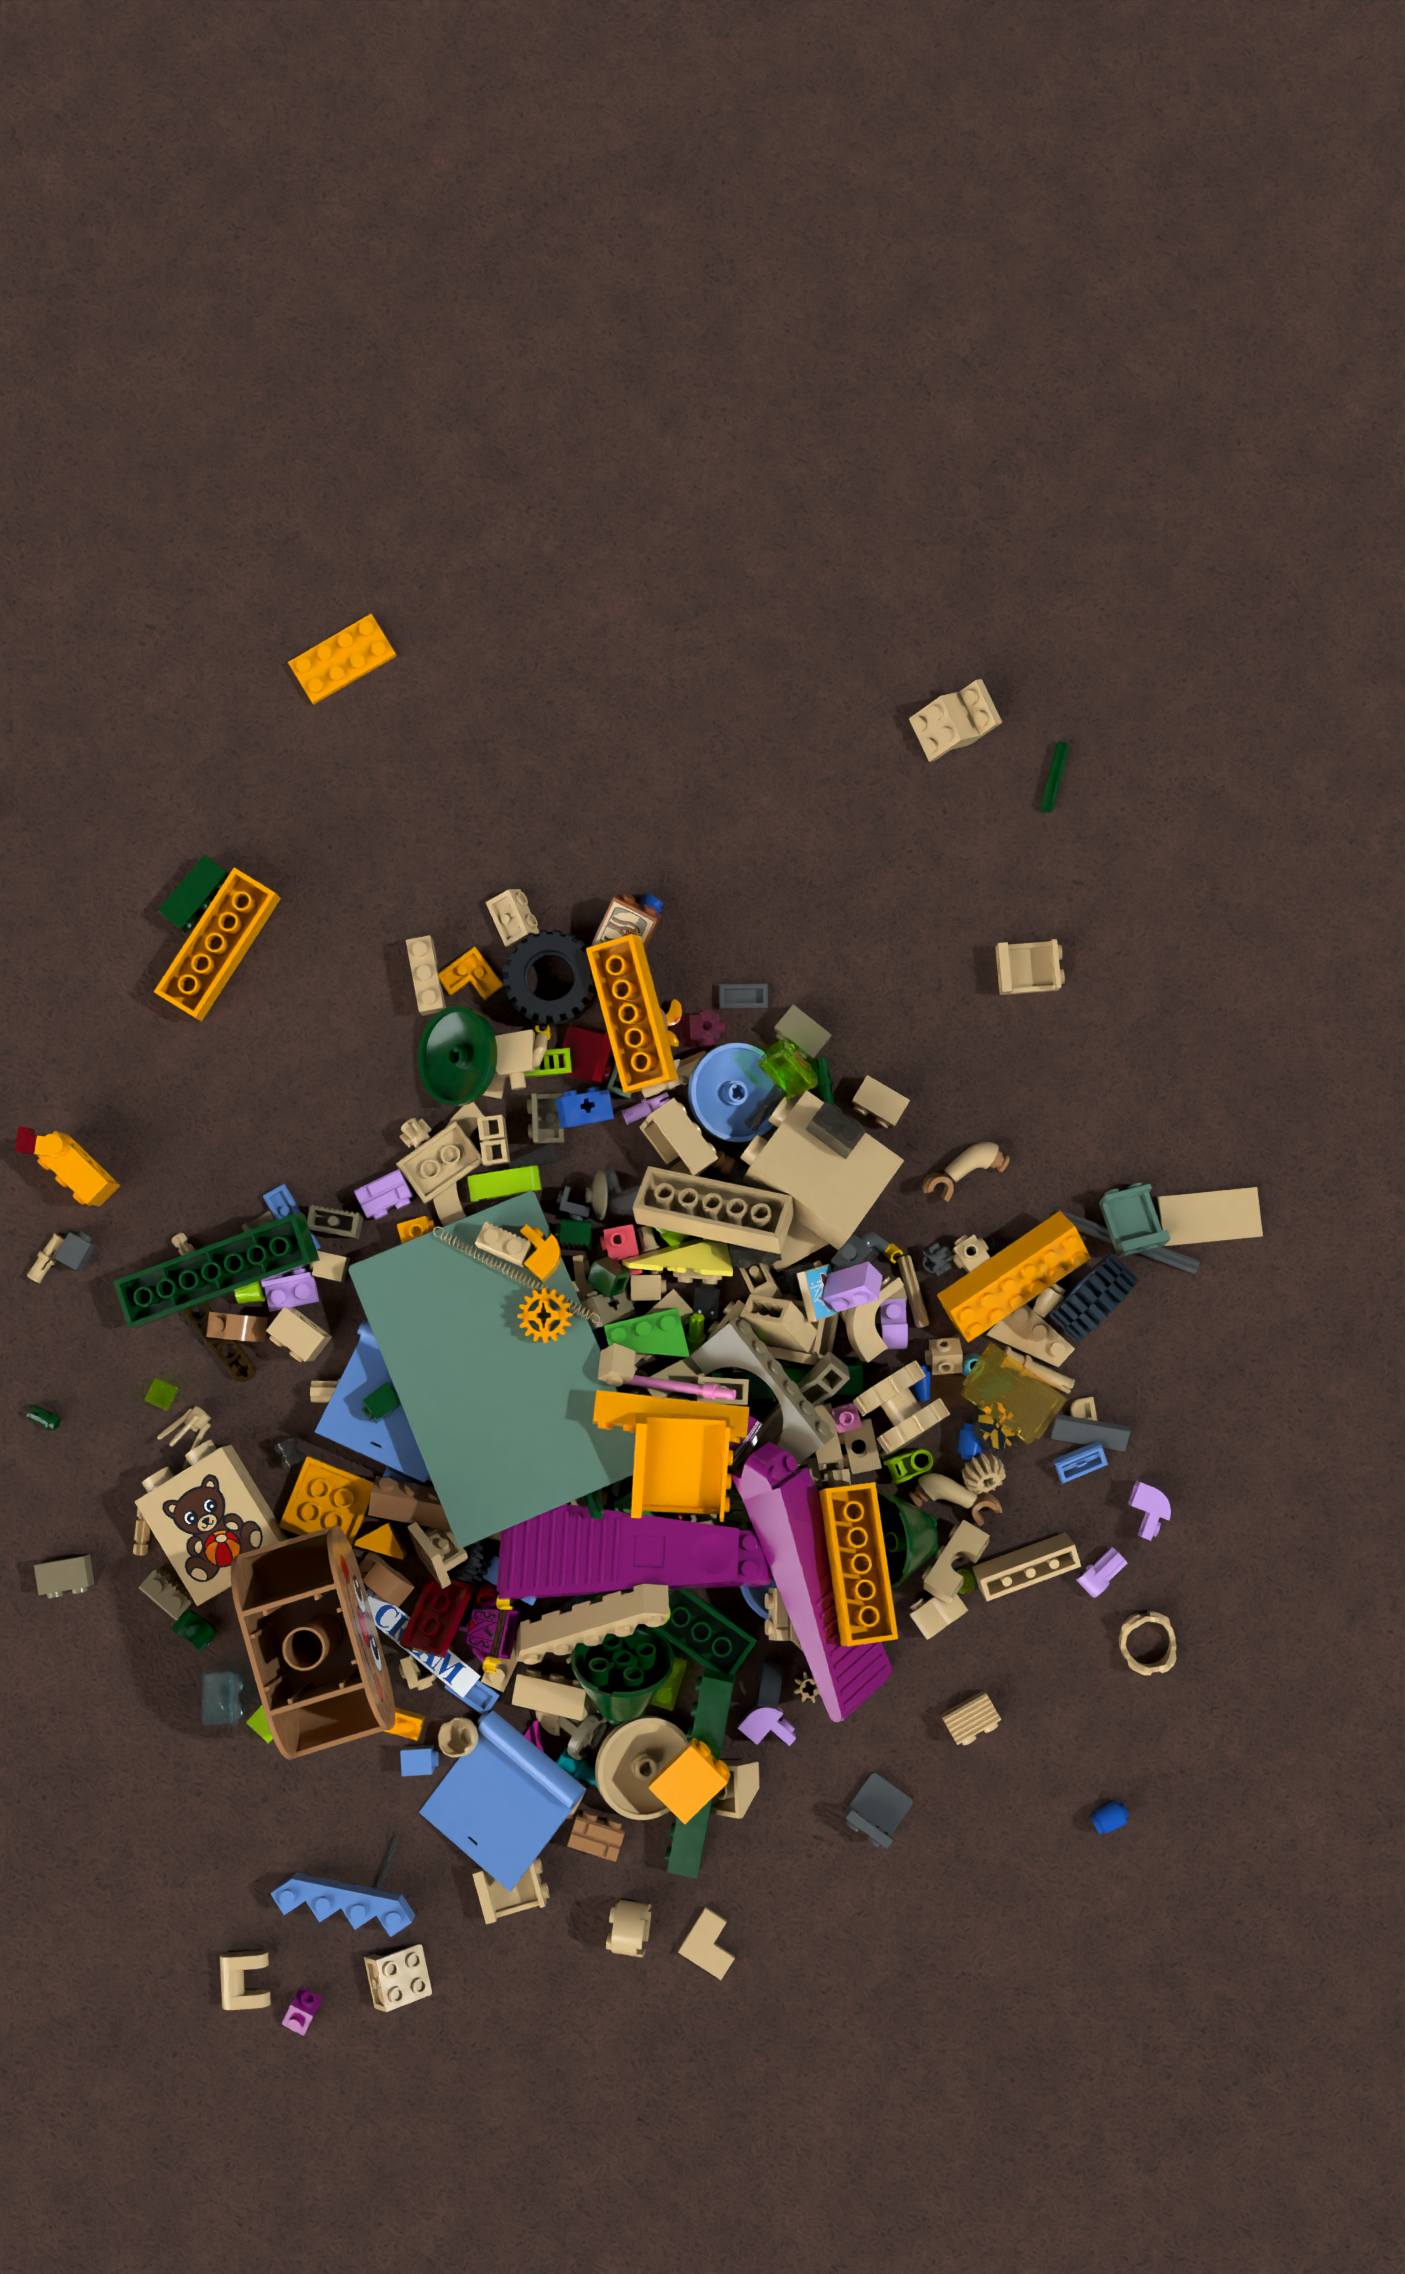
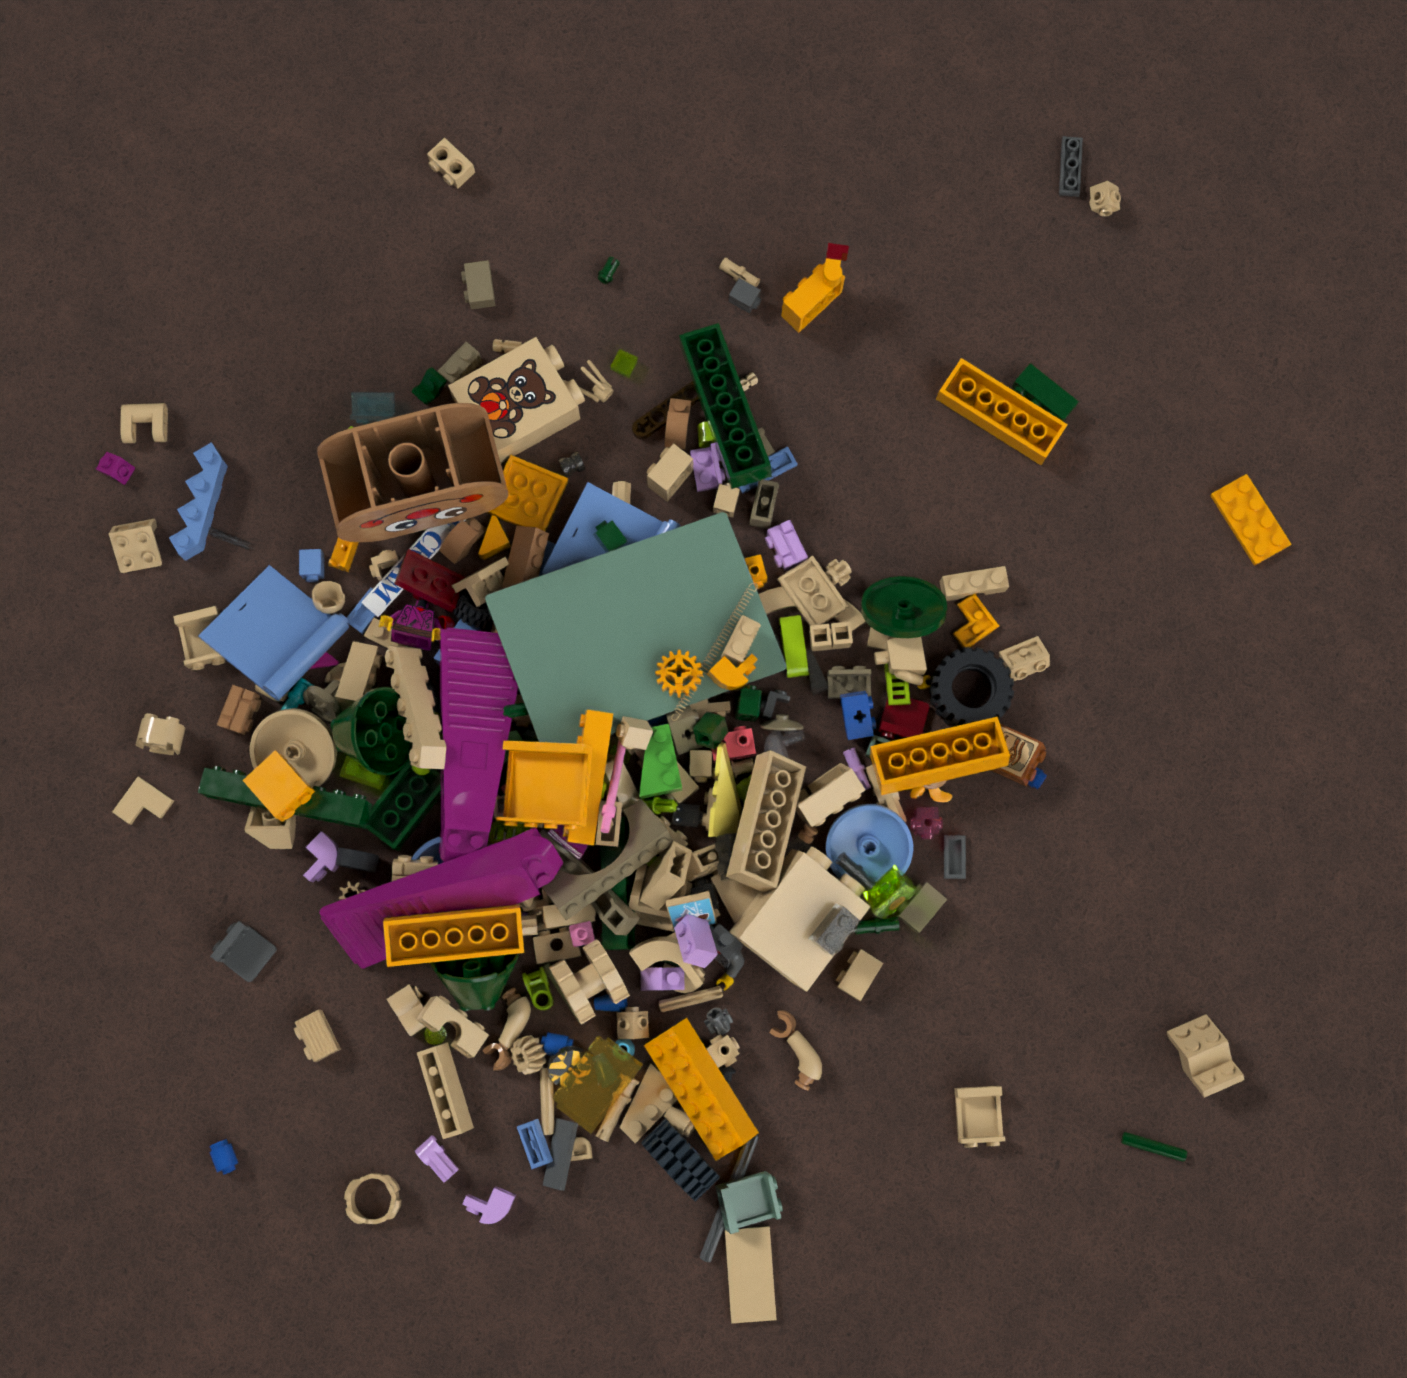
camera: 85 degrees right, 5 degrees down
(1038, 1449) = (547, 1103): none -> tan axle

